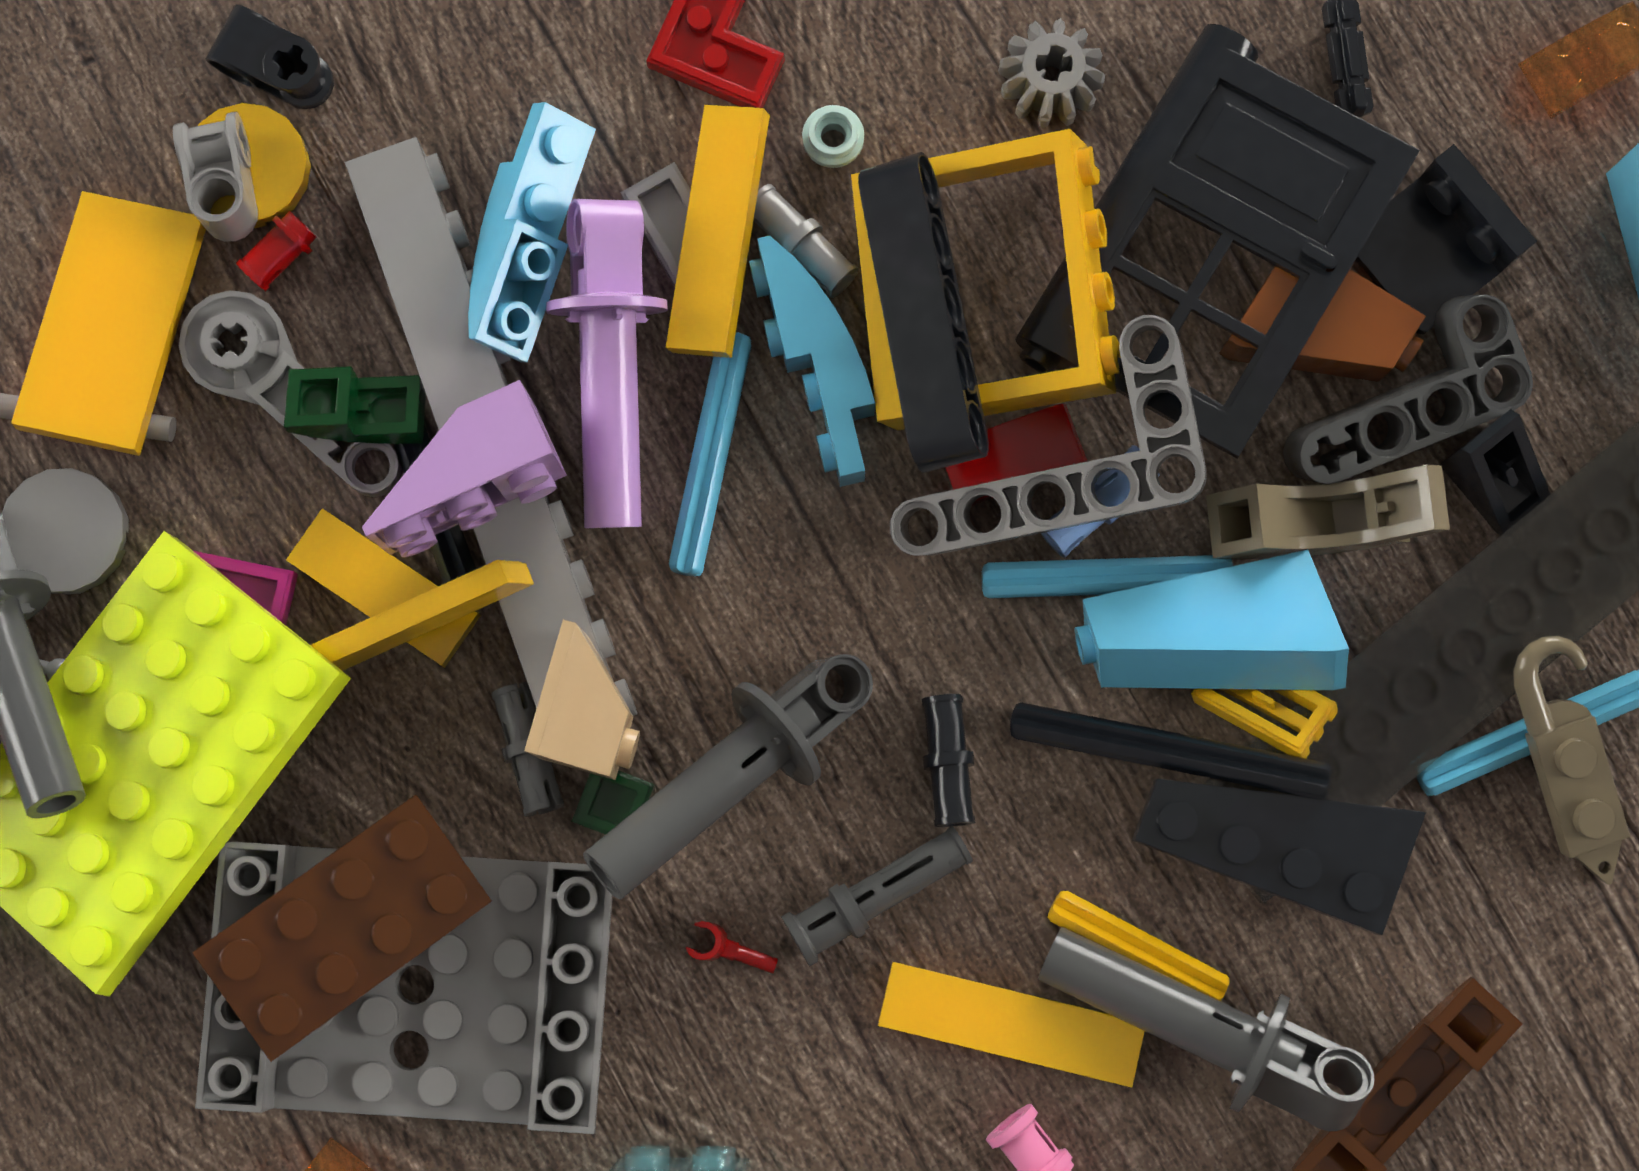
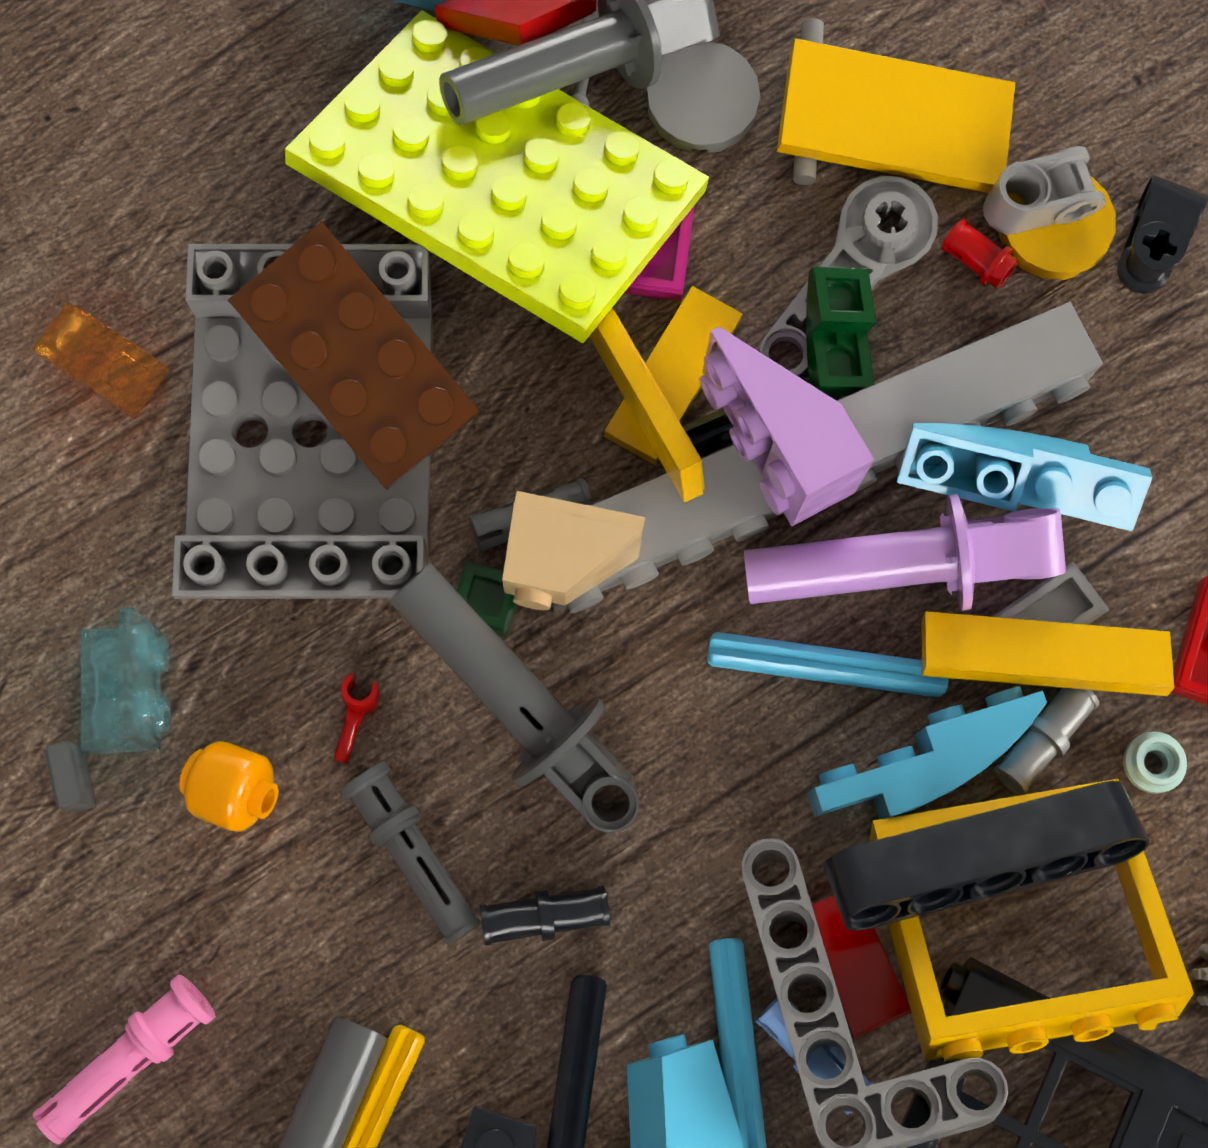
camera: 80 degrees right, 5 degrees down
(796, 1082) = (228, 786): none -> light orange head
(1011, 1024) = (291, 994): yellow tile -> none

